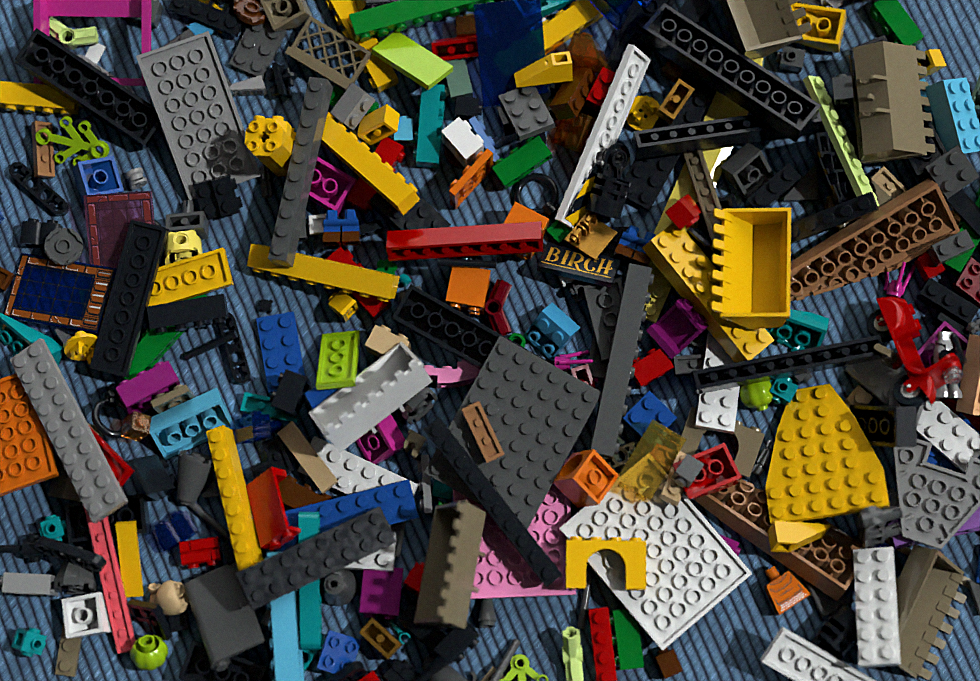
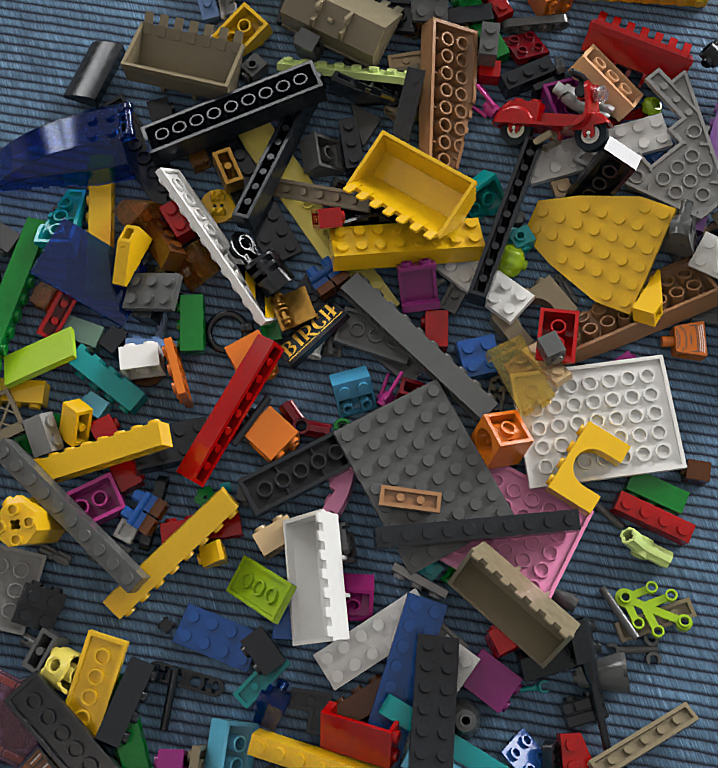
camera: 60 degrees left, 5 degrees down
(307, 457) = (329, 672): tan tile -> none
(380, 638) = (533, 708): pearl gold brick -> none
(416, 443) = (379, 564): dark tan hinge -> none

